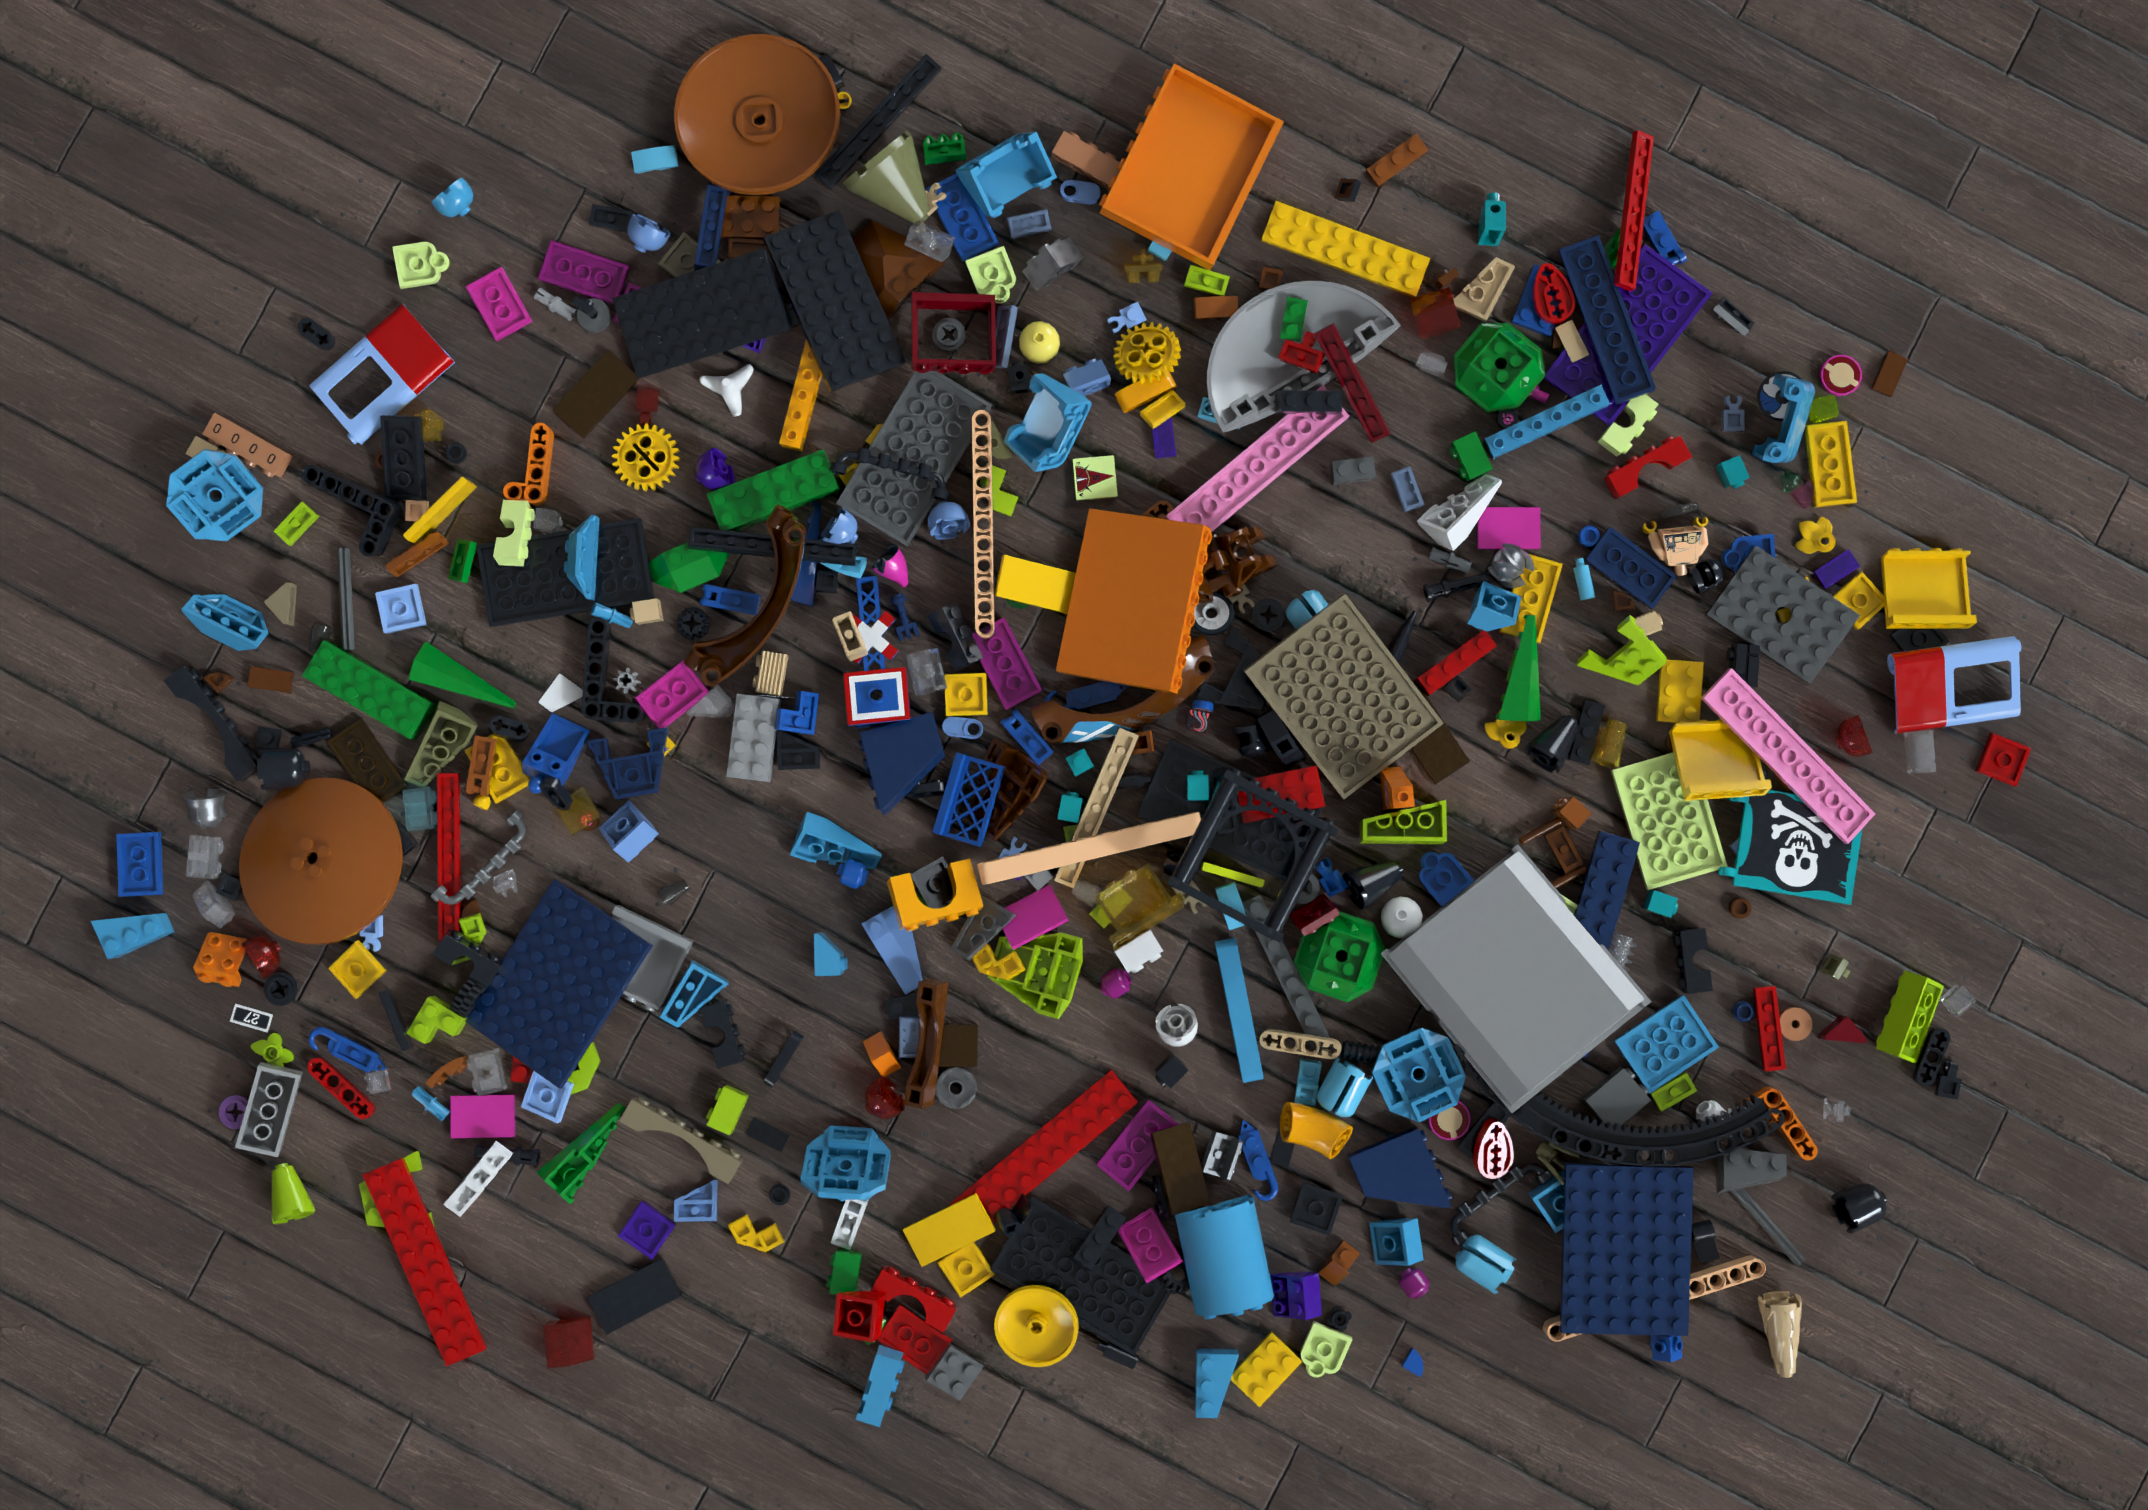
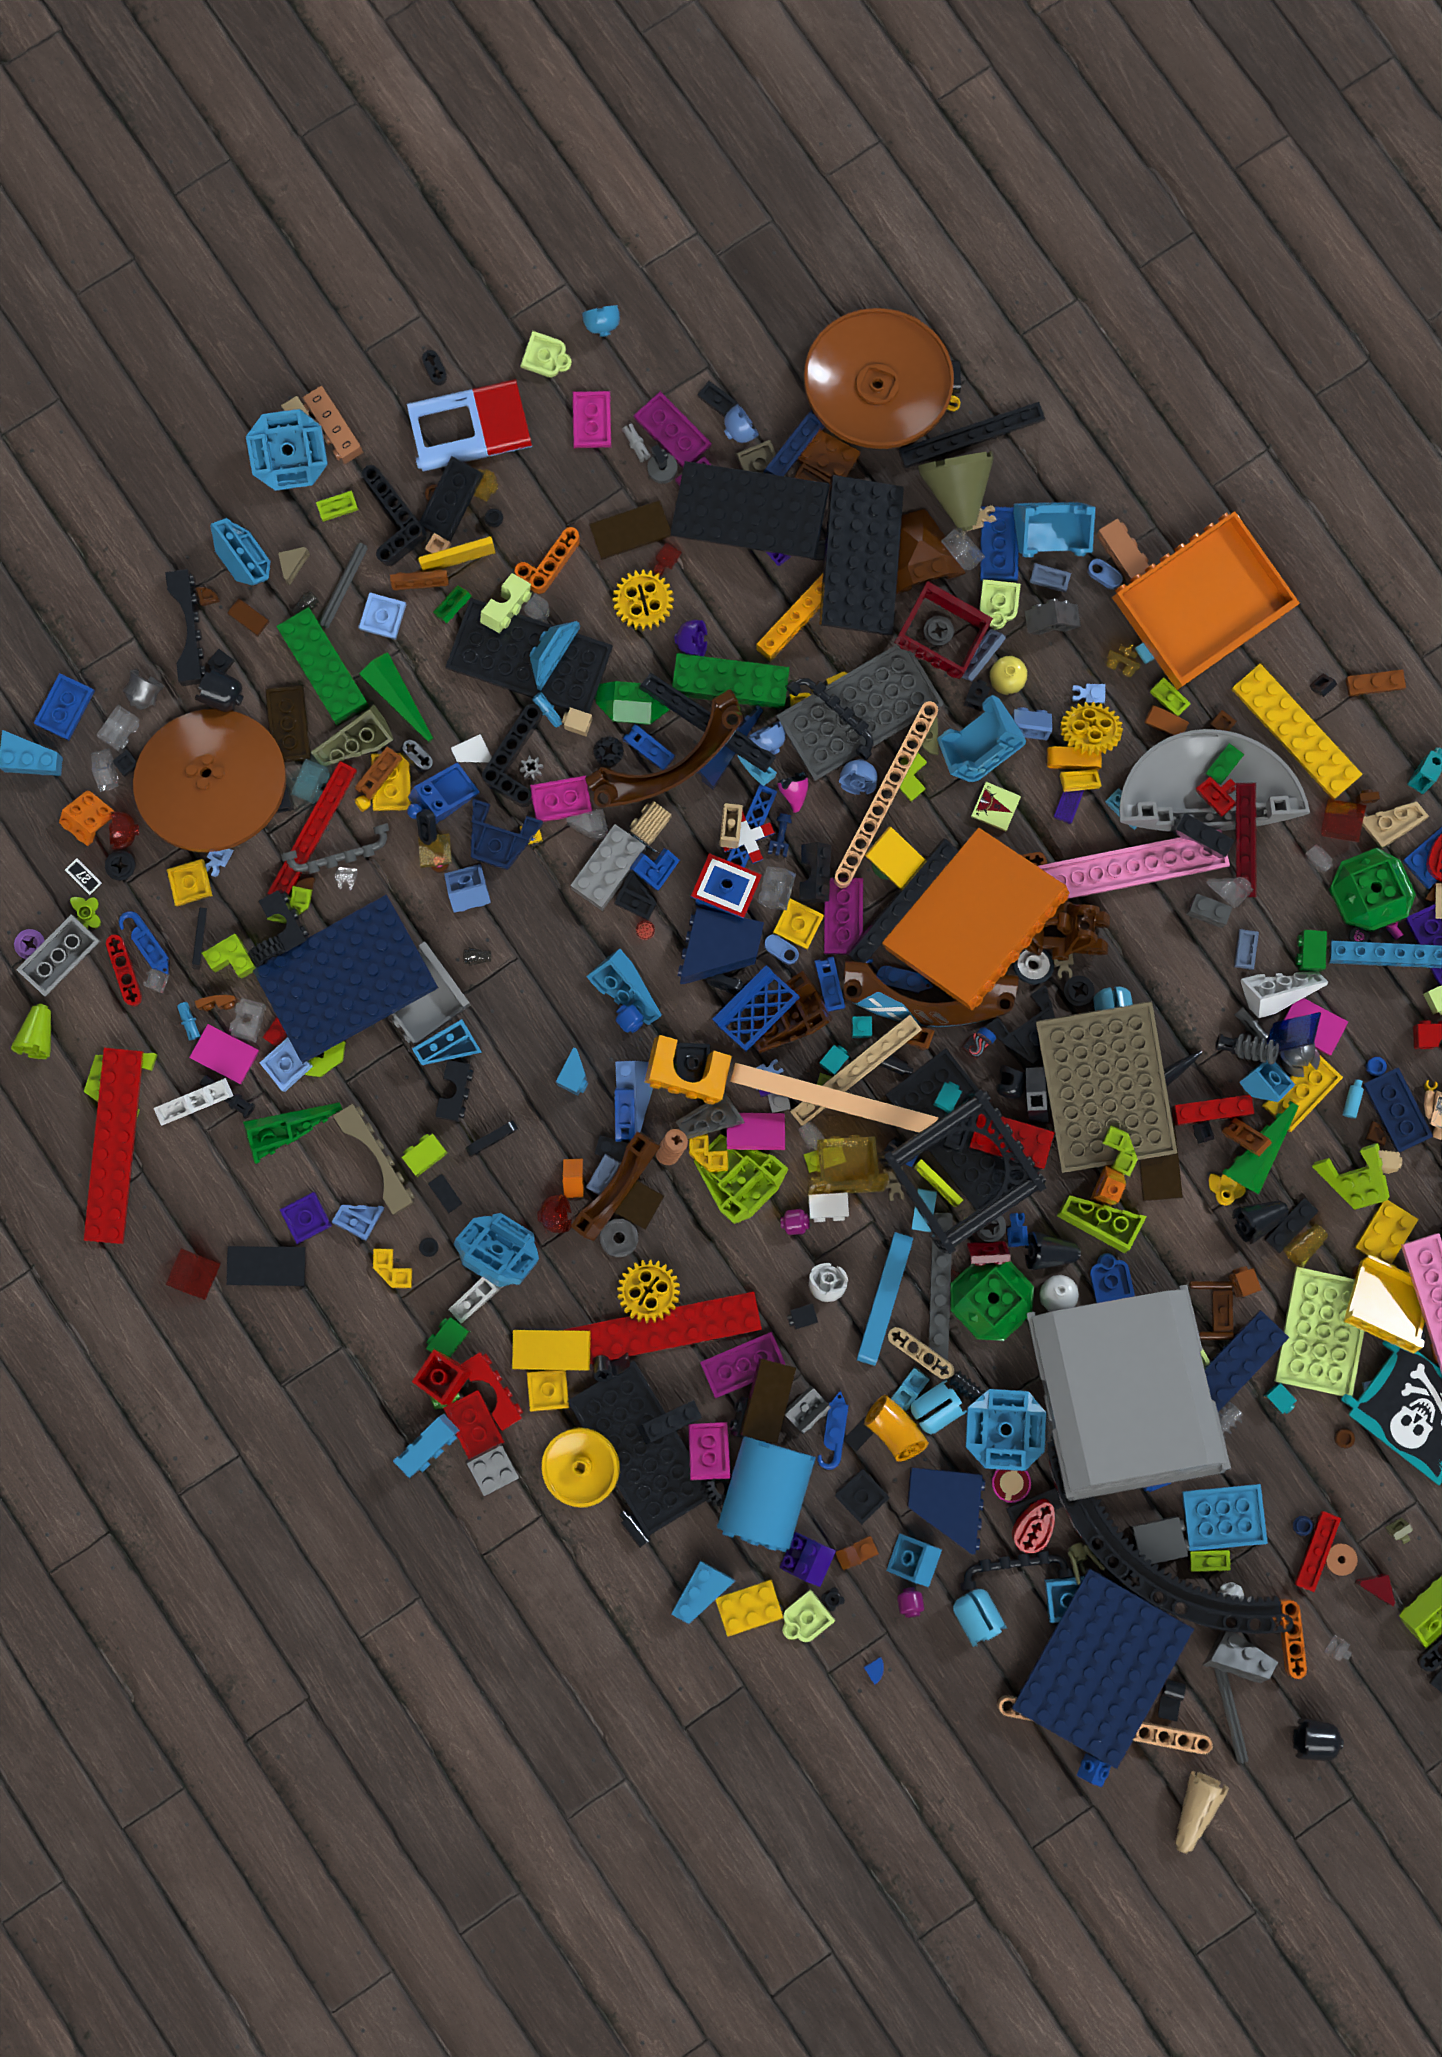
camera: 30 degrees right, 5 degrees down
(311, 737) = (254, 679): black axle -> none
(654, 159) = (777, 370): medium azure slope -> none
(729, 387) = (740, 580): white piece -> none
(822, 779) = (645, 930): none -> clear red tile
(827, 582) = (734, 774): black plate -> none
(897, 968) = (624, 1114): none -> blue plate
(944, 149) = (1013, 483): green plate -> none
(960, 976) = (672, 1147): none -> nougat piece
(1030, 1125) = (663, 1299): none -> yellow gear
(1054, 620) = (902, 902): none -> black plate
(1362, 439) = (1232, 889): none -> clear slope
(1385, 741) = (1121, 1141): none -> lime tile
(1468, 584) = (1256, 1050): none -> dark grey piece
(1494, 549) = (1295, 1032): none -> clear blue piece
(1501, 672) = (1246, 1136): none -> dark orange plate
(1688, 943) = (1274, 1474): black arch -> none

